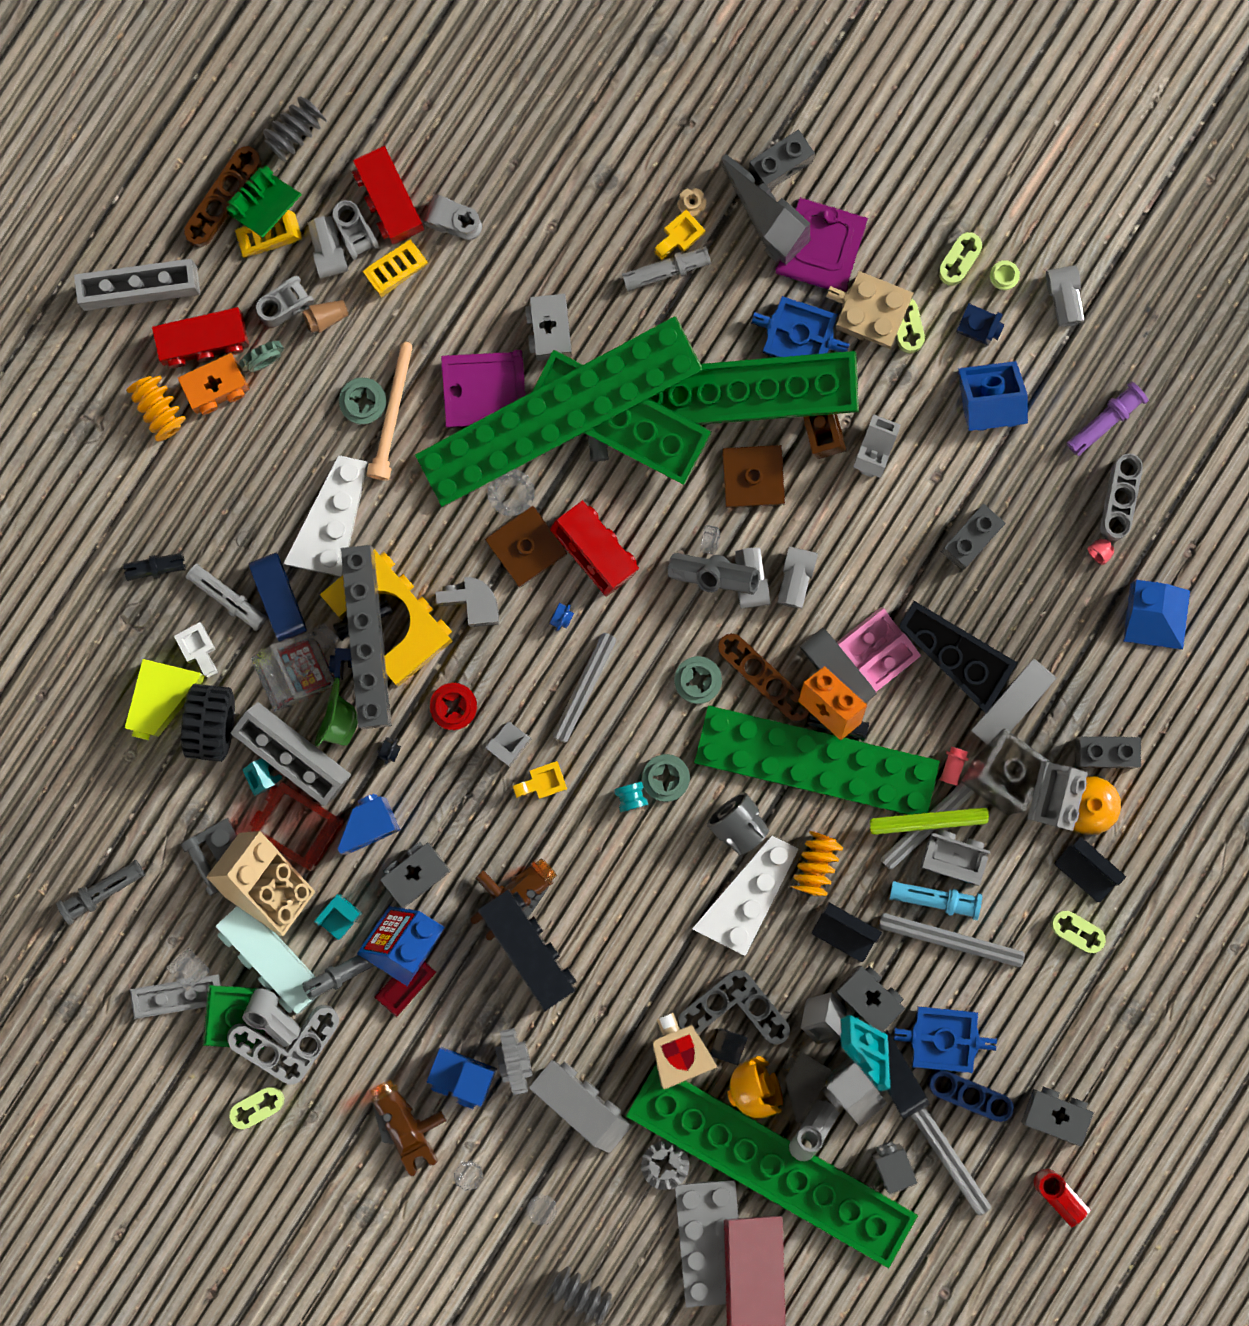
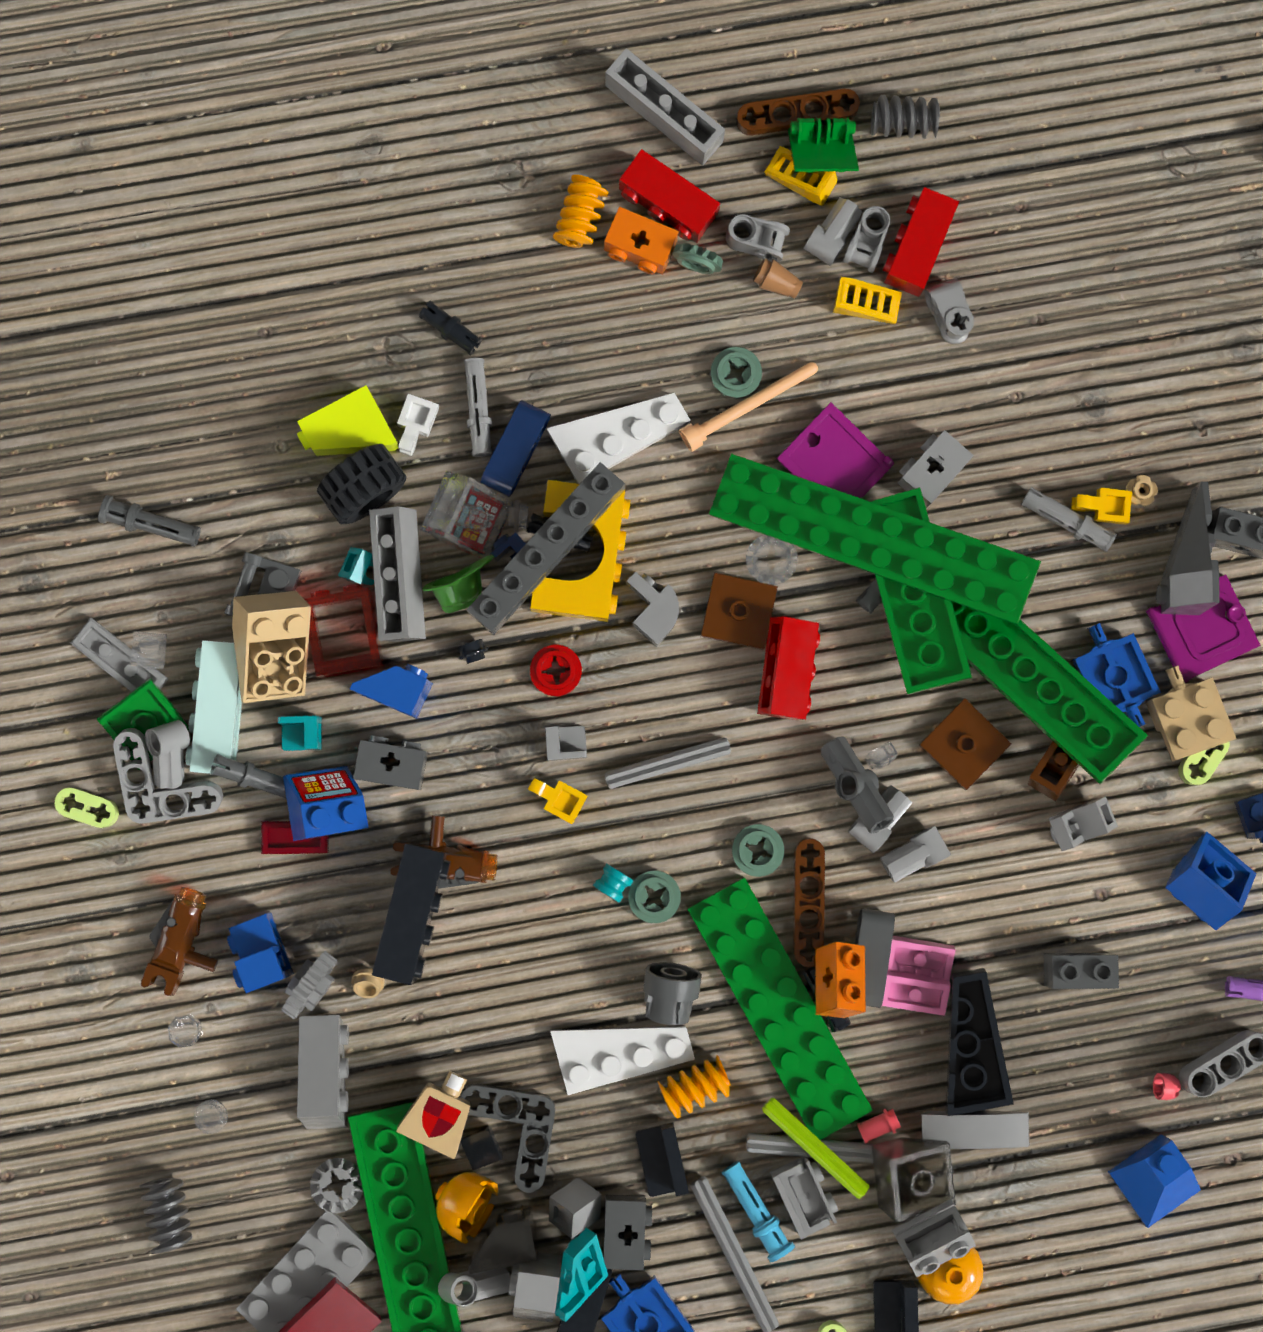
camera: 30 degrees right, 0 degrees up
(548, 1023) = (365, 984): none -> tan plate
(561, 616) = (708, 692): blue plate -> none
(1107, 752) = (1007, 1245): dark grey brick -> none

